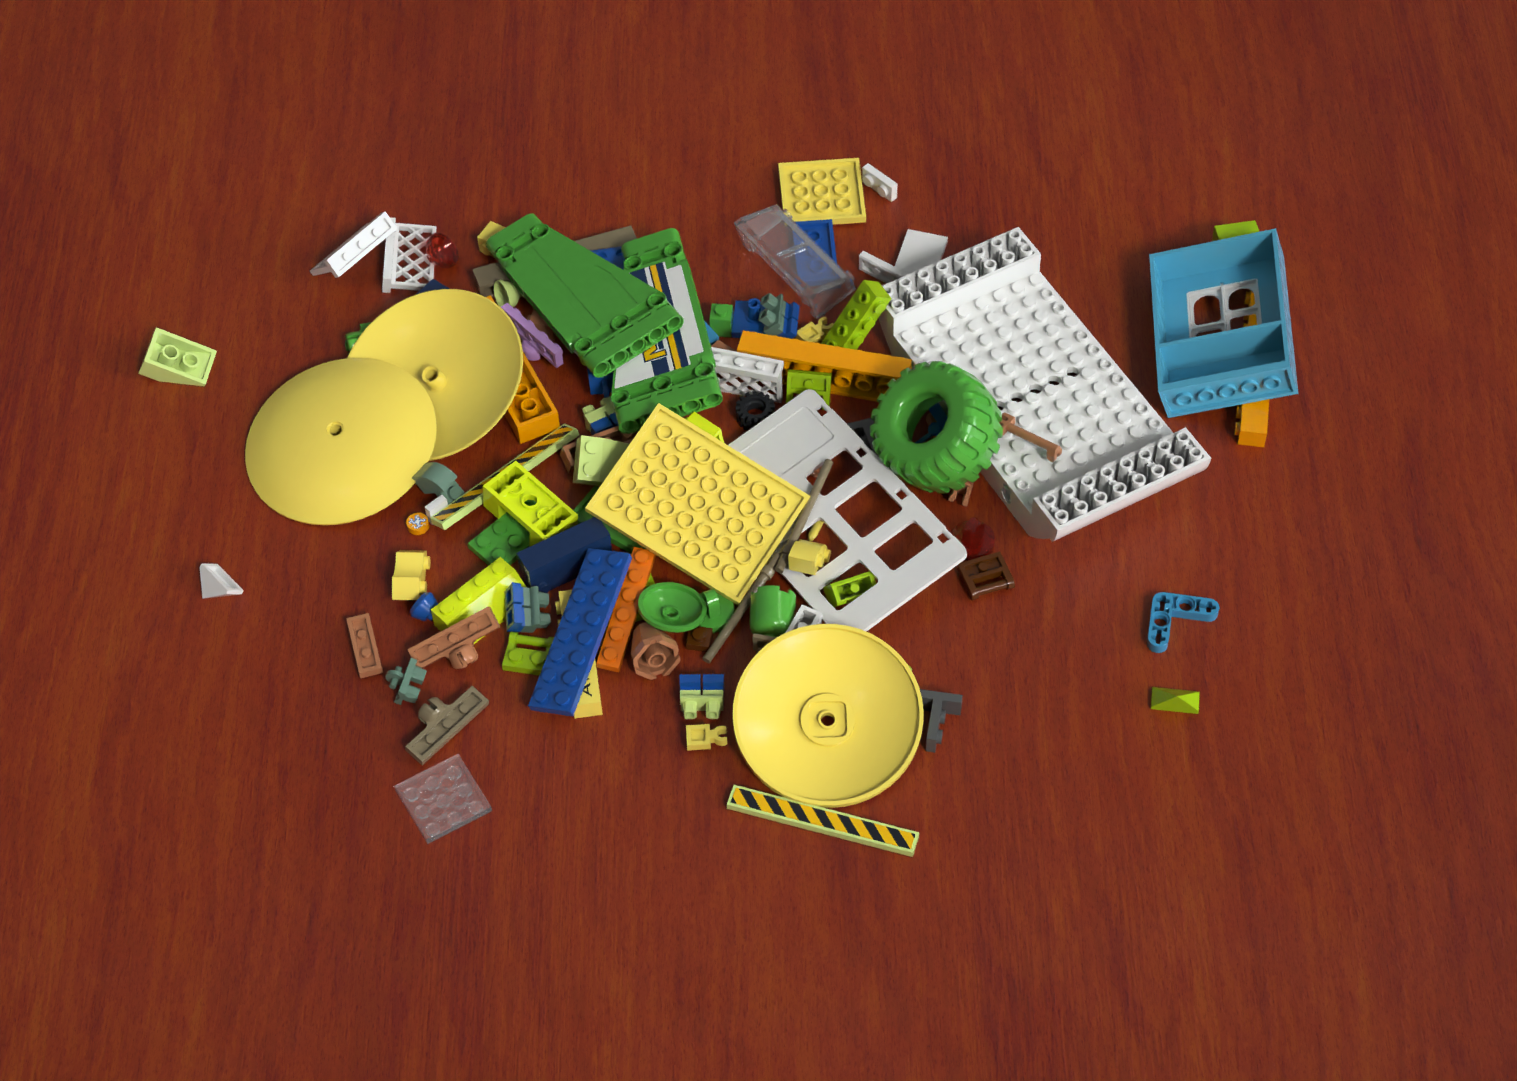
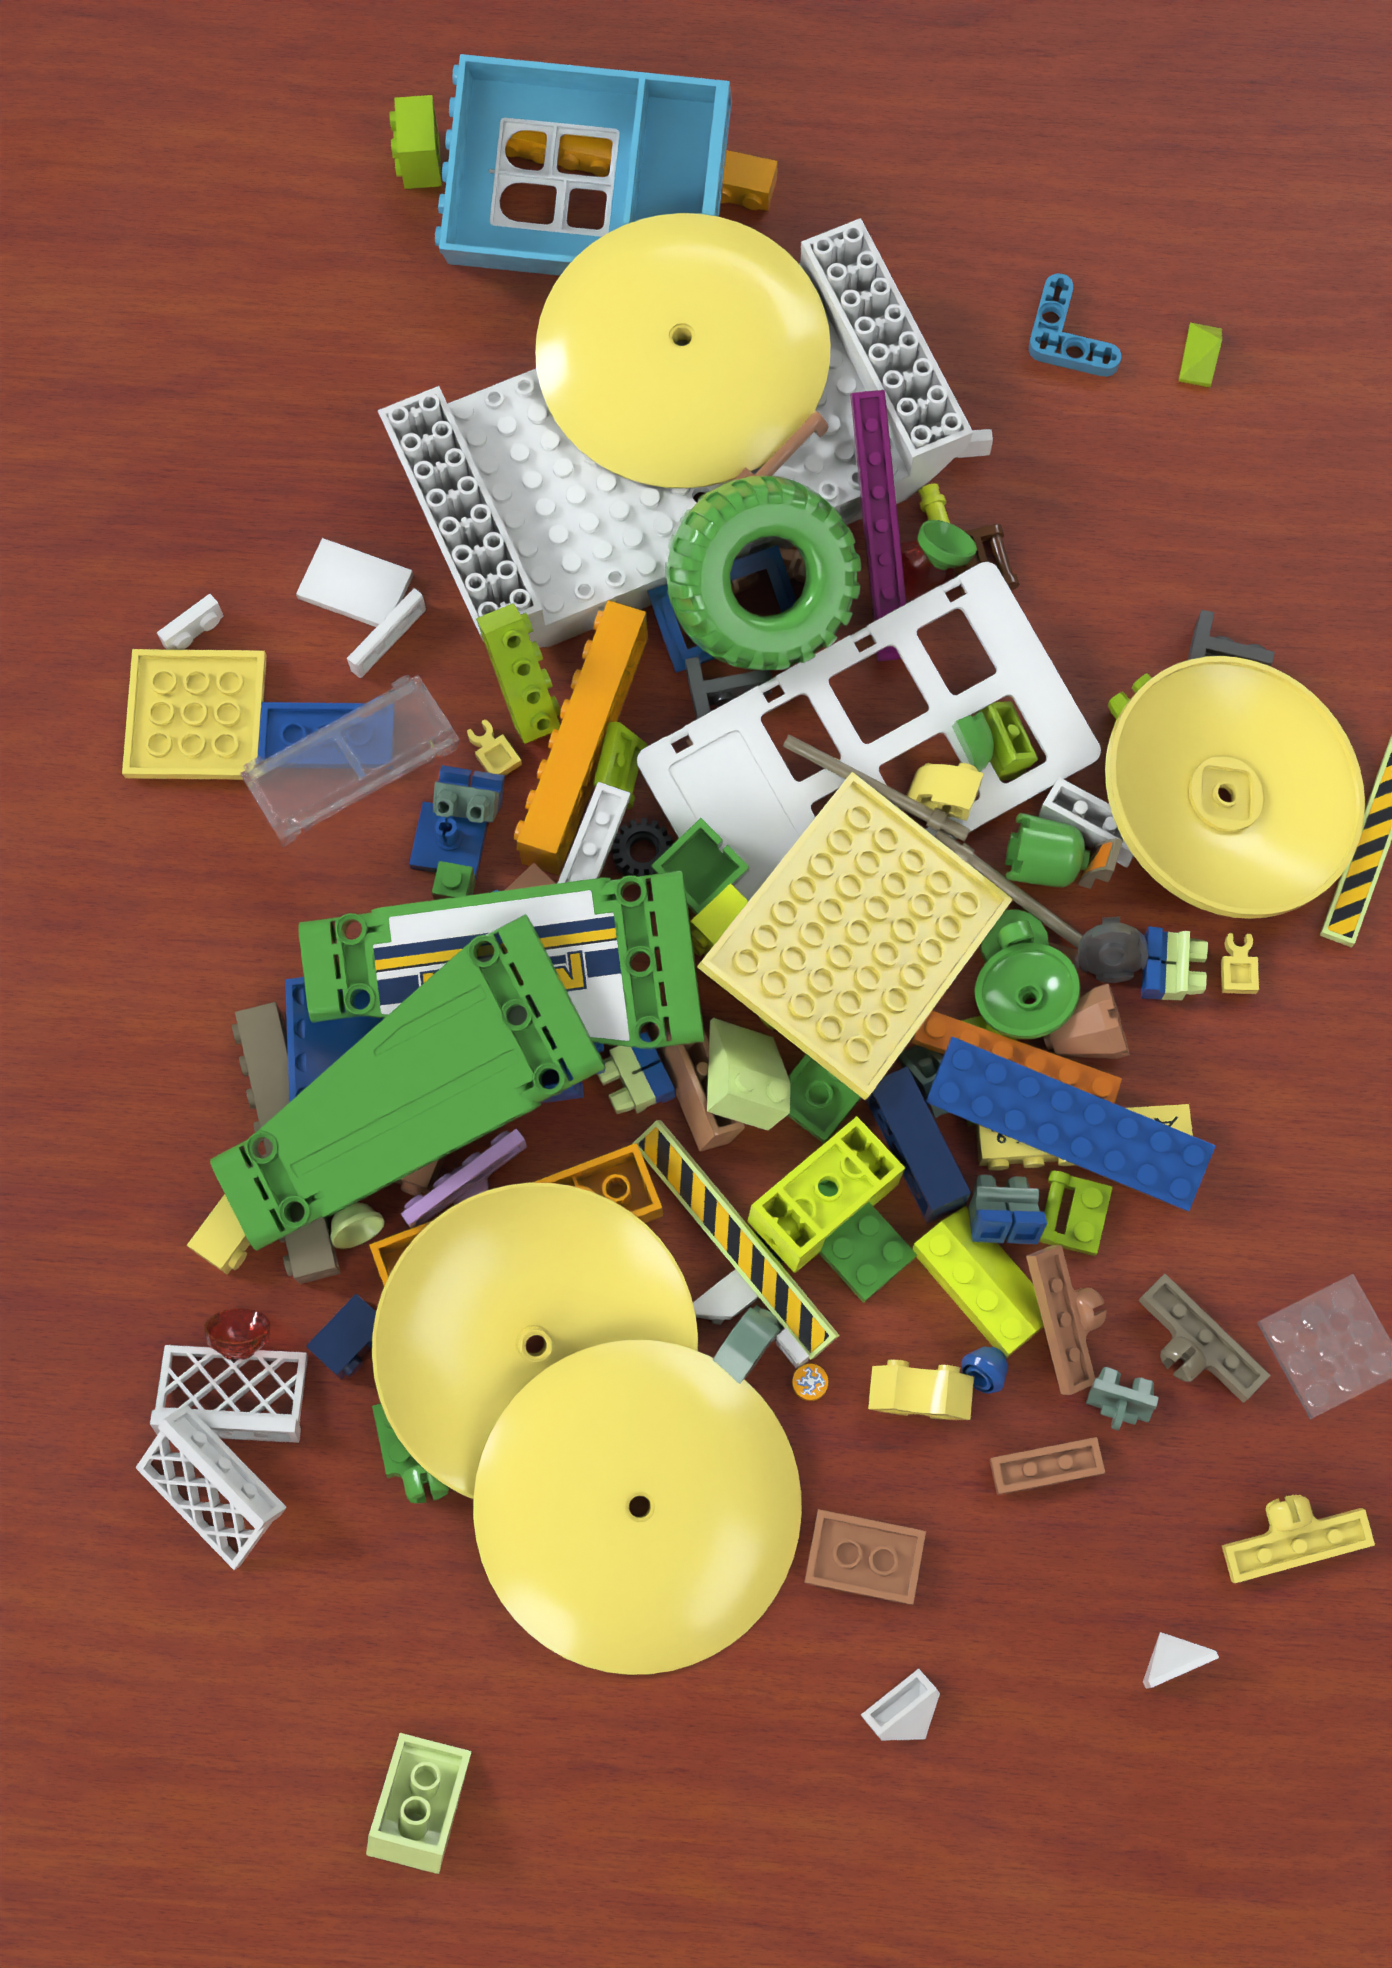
camera: 85 degrees left, 20 degrees up
(243, 718) = (1174, 1658): none -> white slope
(309, 556) = (865, 1557): none -> nougat plate
(316, 781) = (1296, 1539): none -> light yellow plate
(467, 474) = (725, 1299): none -> white slope
(707, 655) = (1113, 951): none -> flat silver tile
(740, 423) = (703, 864): none -> bright green piece
(841, 562) = (975, 739): none -> bright green brick
(993, 540) = (946, 544): none -> bright green piece
(999, 496) = (878, 507): none -> magenta tile
(1020, 547) = (933, 503): none -> neon yellow pin
(1074, 564) = (980, 444): none -> white tile
(1098, 380) = (695, 408): none -> light yellow dish

